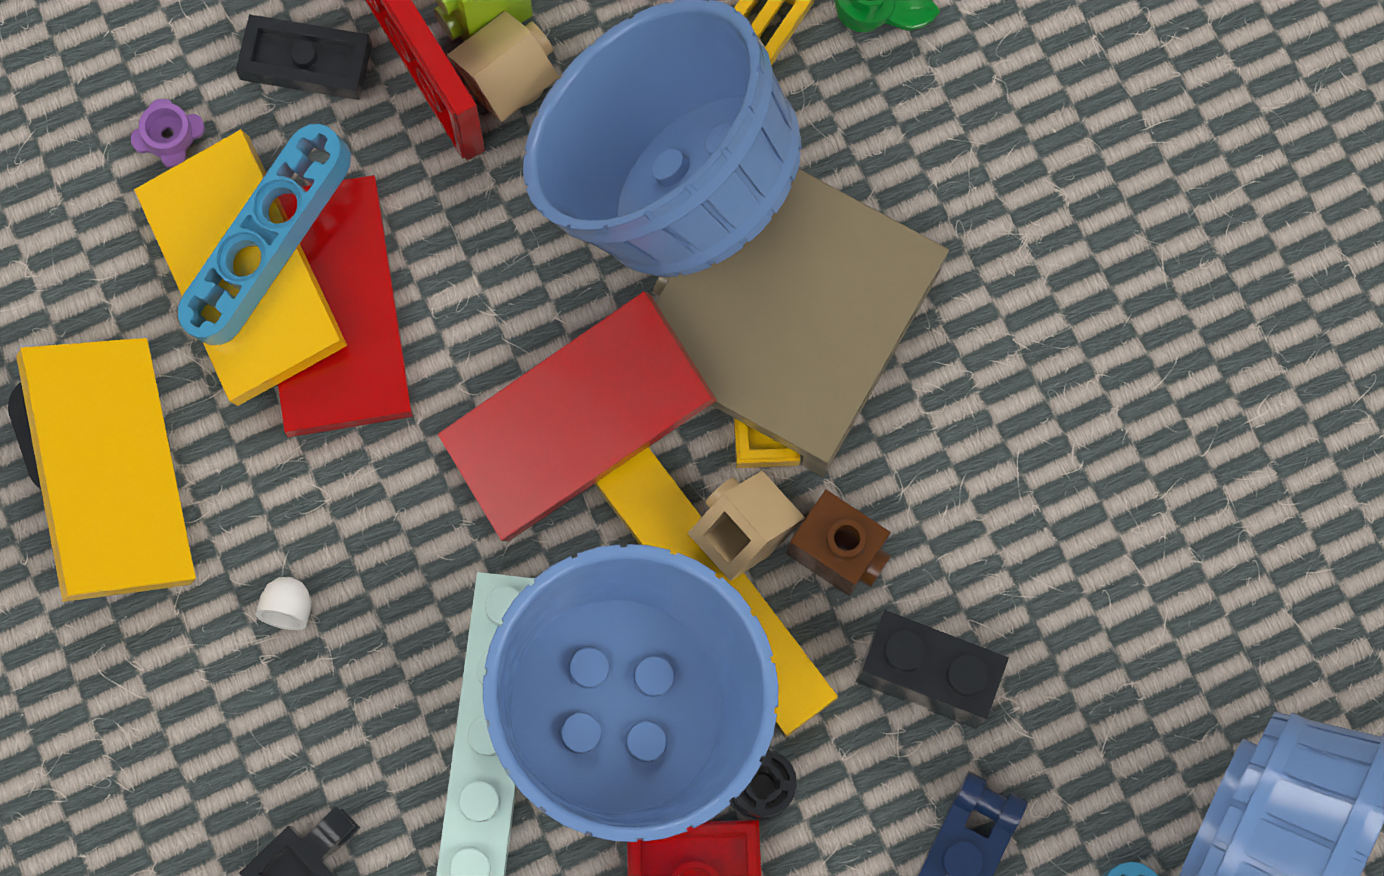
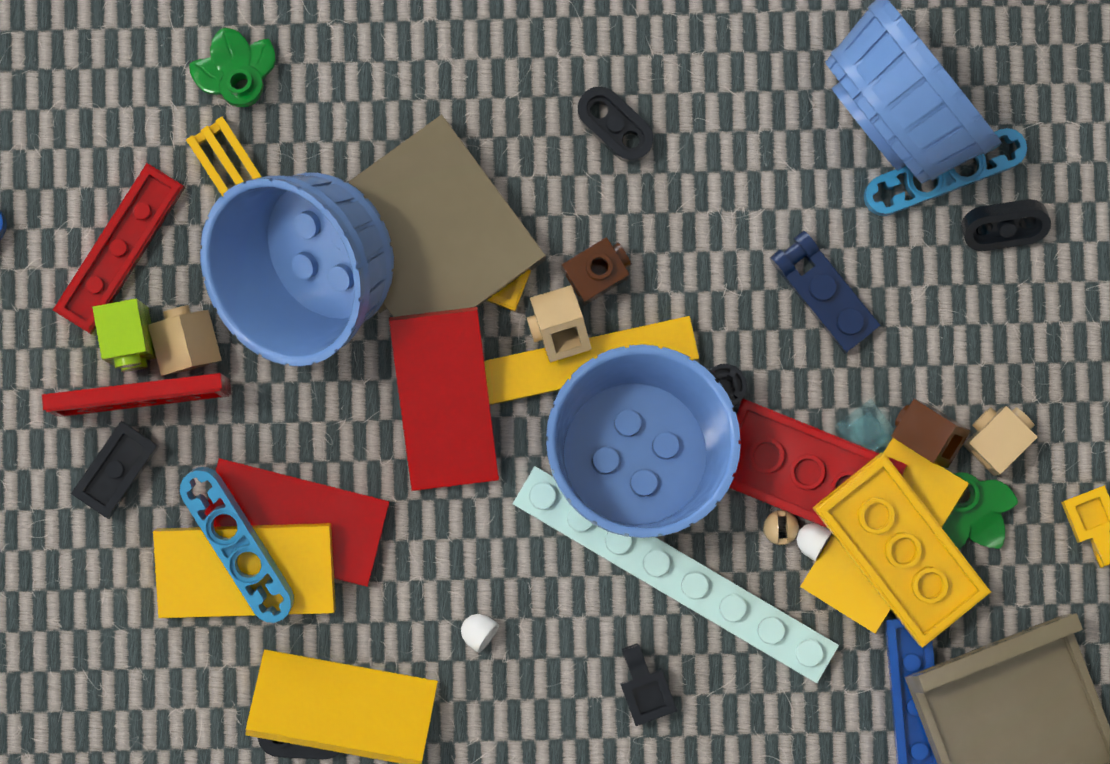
camera: 65 degrees left, 10 degrees up
(163, 116) = (114, 578): medium lavender plate -> none
(932, 669) = (699, 251): black brick -> none
(1046, 487) = (616, 124): none -> black plate

